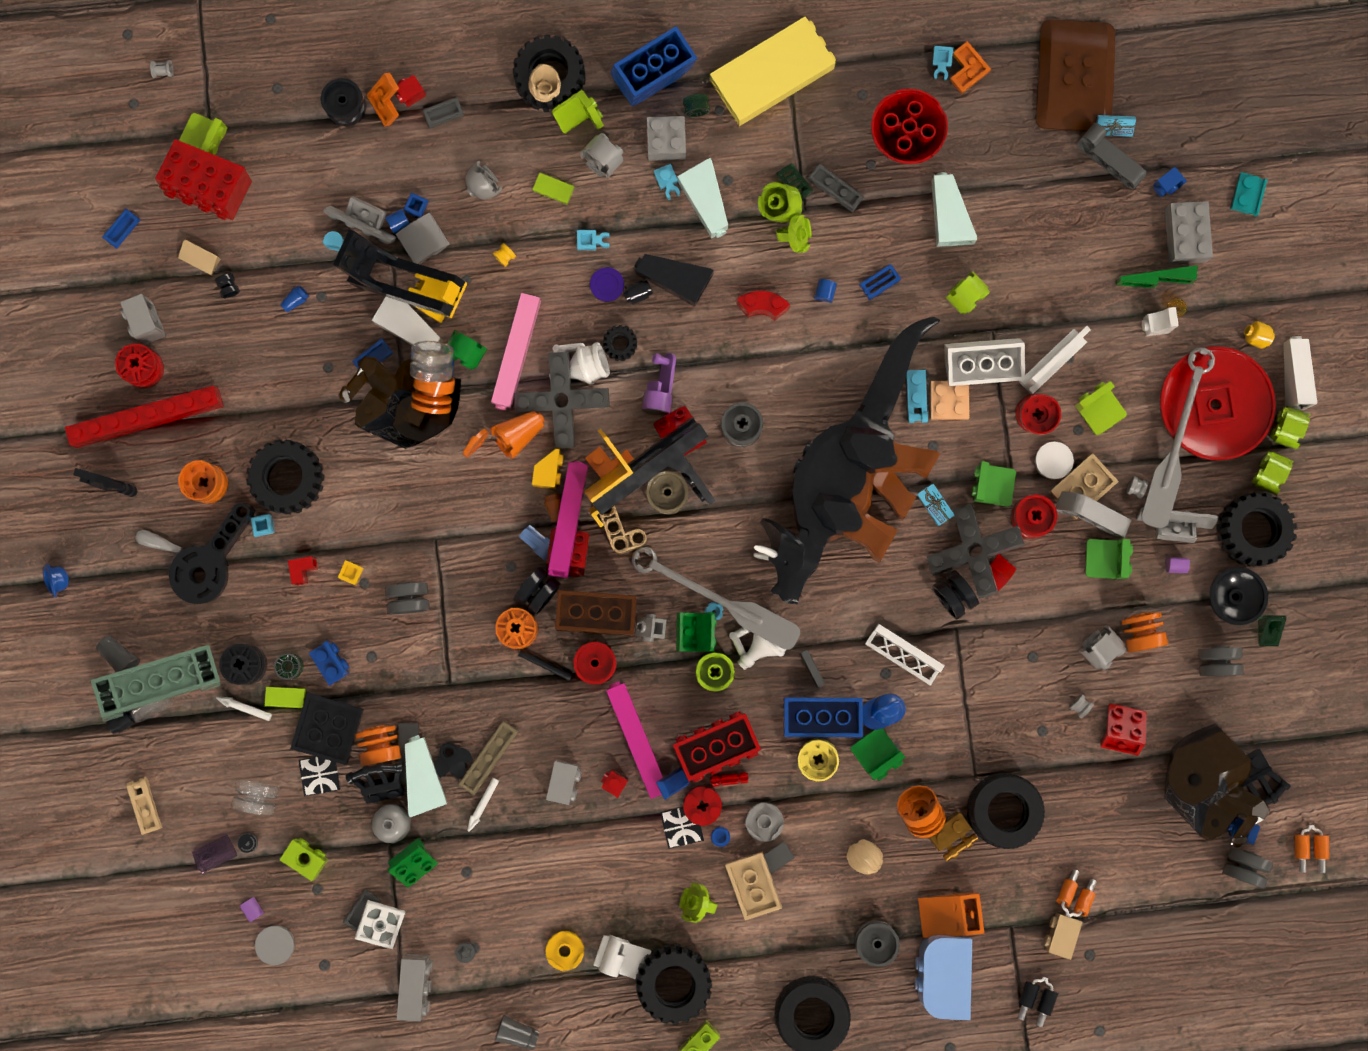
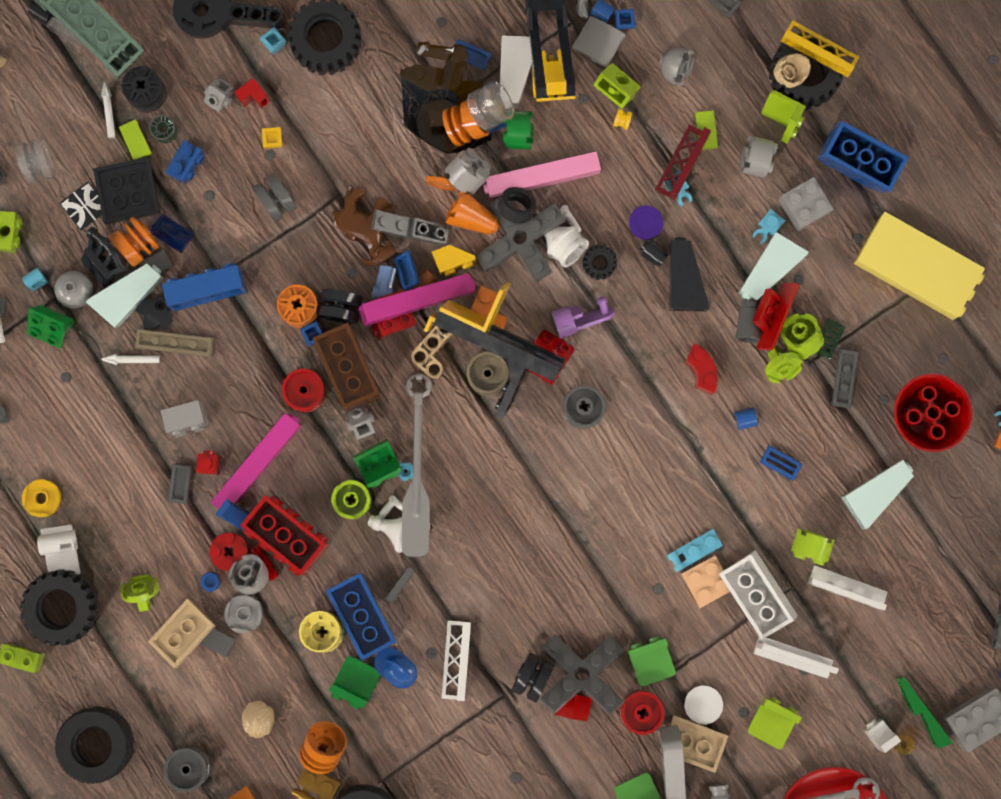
camera: 60 degrees right, 0 degrees up
(285, 599) = (218, 94): none -> light grey brick
(362, 854) = (34, 279): none -> medium azure brick
(388, 708) = (171, 233): none -> clear blue slope
(454, 703) = (204, 287): none -> blue brick
(472, 244) = (617, 85): none -> lime brick
(477, 532) = (358, 226): none -> reddish brown animal
(478, 413) = (468, 171): none -> light grey brick
(500, 492) = (410, 228): none -> dark grey slope
(527, 378) = (521, 196): none -> black tyre
(536, 515) = (406, 270): none -> blue tile
(540, 53) = (817, 52): none -> yellow fence
(546, 629) = (310, 331): none -> blue brick
(546, 665) = (281, 348): black bar -> none
(576, 217) = (698, 145): none -> dark red fence
(618, 818) = (180, 484): none -> dark grey tile
(680, 829) = (198, 542): sticker -> none
(696, 105) = (849, 215): clear green wheel -> none
(733, 798) = (249, 574): none -> light grey cylinder
(743, 242) = (746, 329): none -> dark grey plant
(748, 216) = (773, 313): none -> red bracket
(840, 472) = (583, 516): black animal -> none
(935, 504) = (605, 618): medium azure tile -> none
(1018, 283) = (848, 588): none -> white fence
(1045, 421) = (735, 678): red wheel -> none

